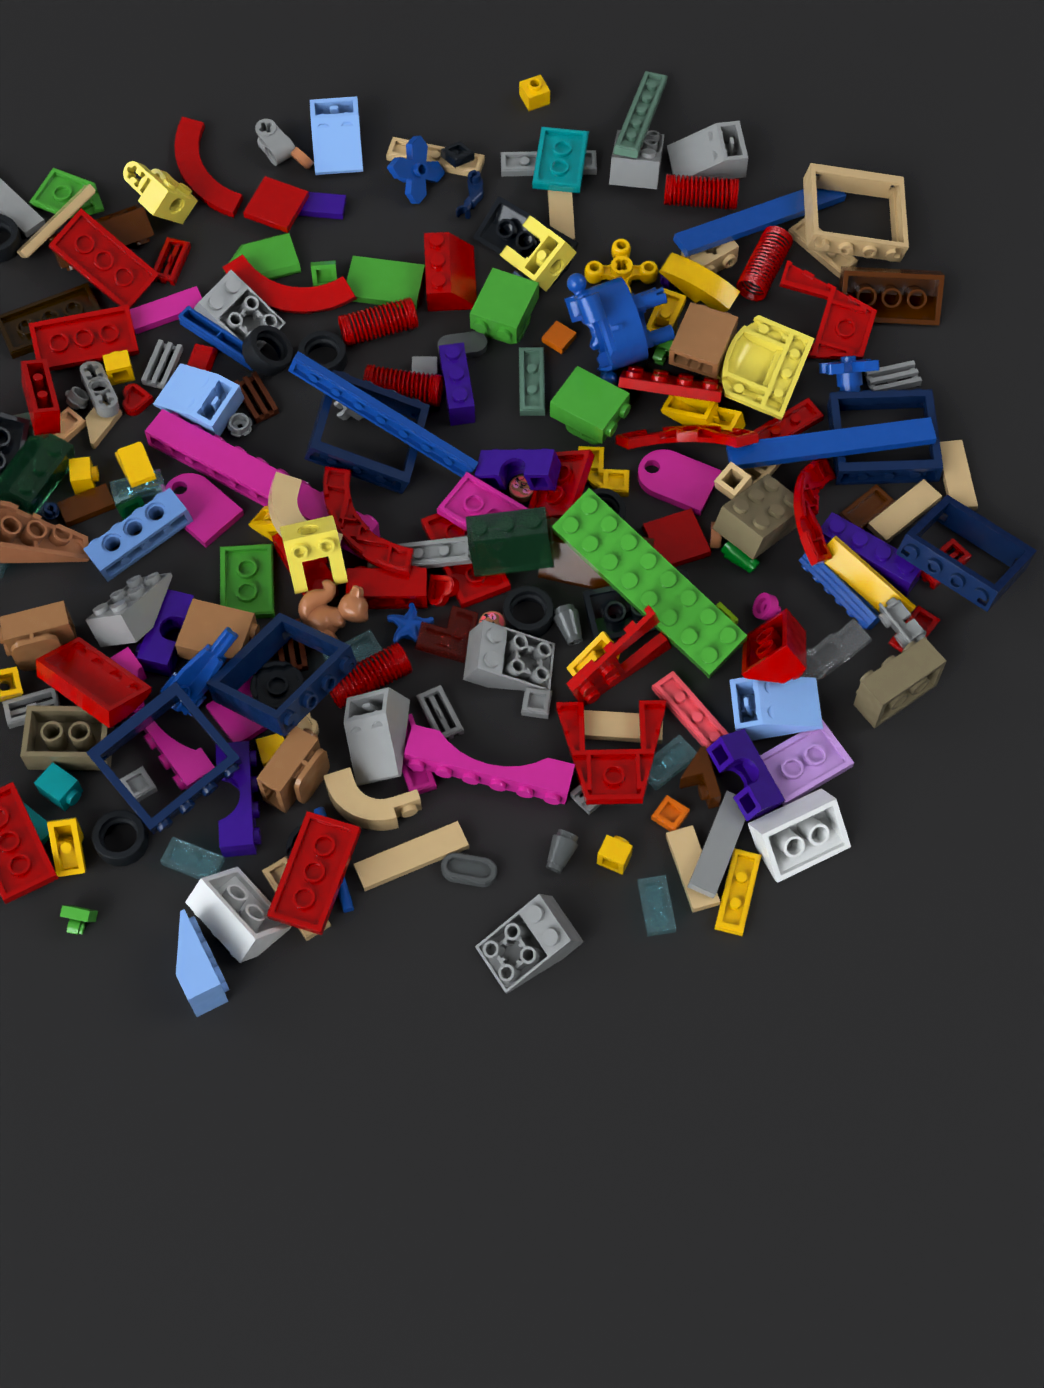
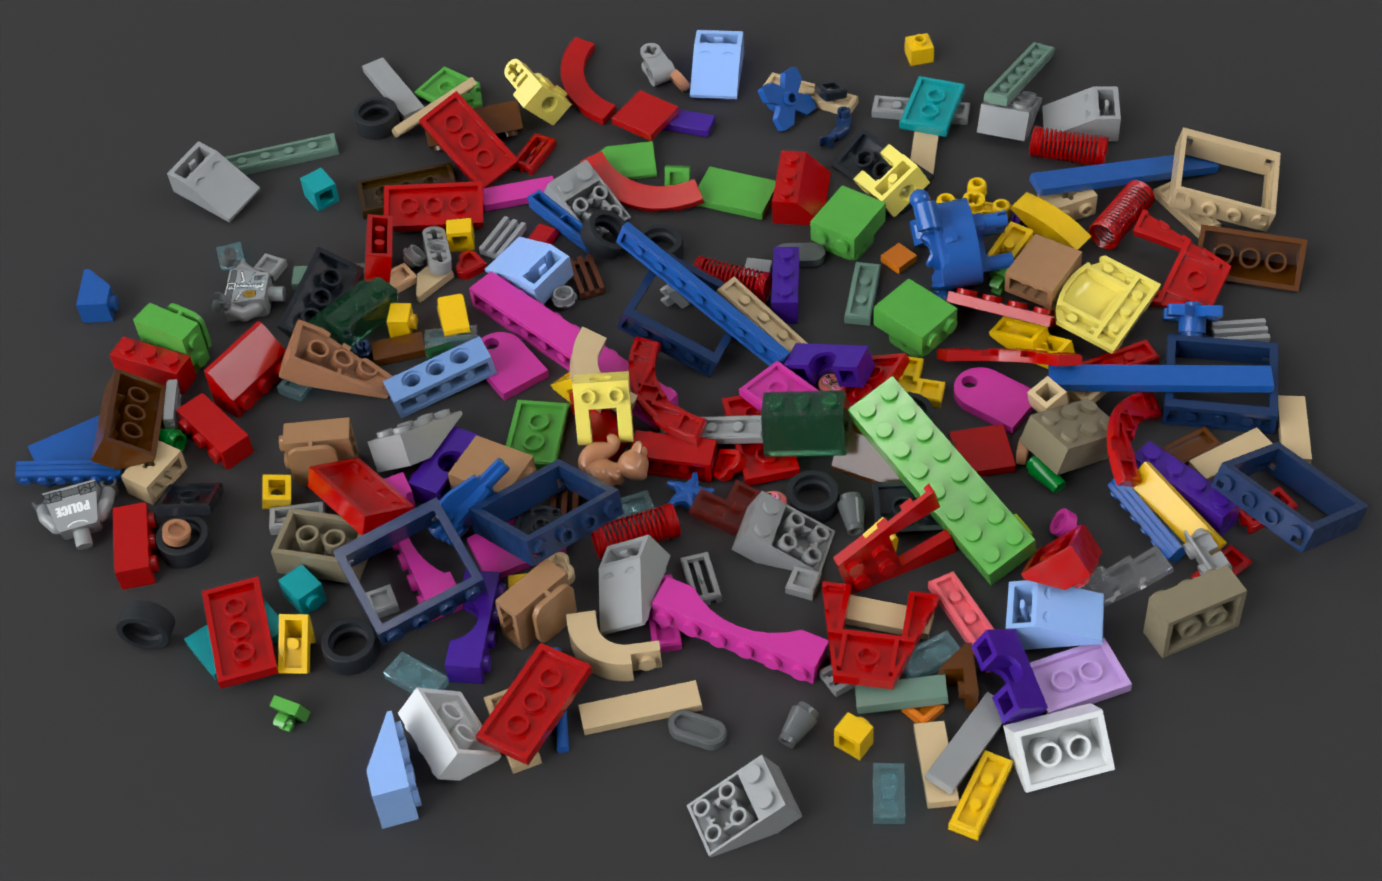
camera: 15 degrees right, 15 degrees down
(410, 315) = (688, 226): red piece -> none
(440, 424) = (755, 310): none -> tan tile
(656, 804) = (906, 694): none -> sand green tile

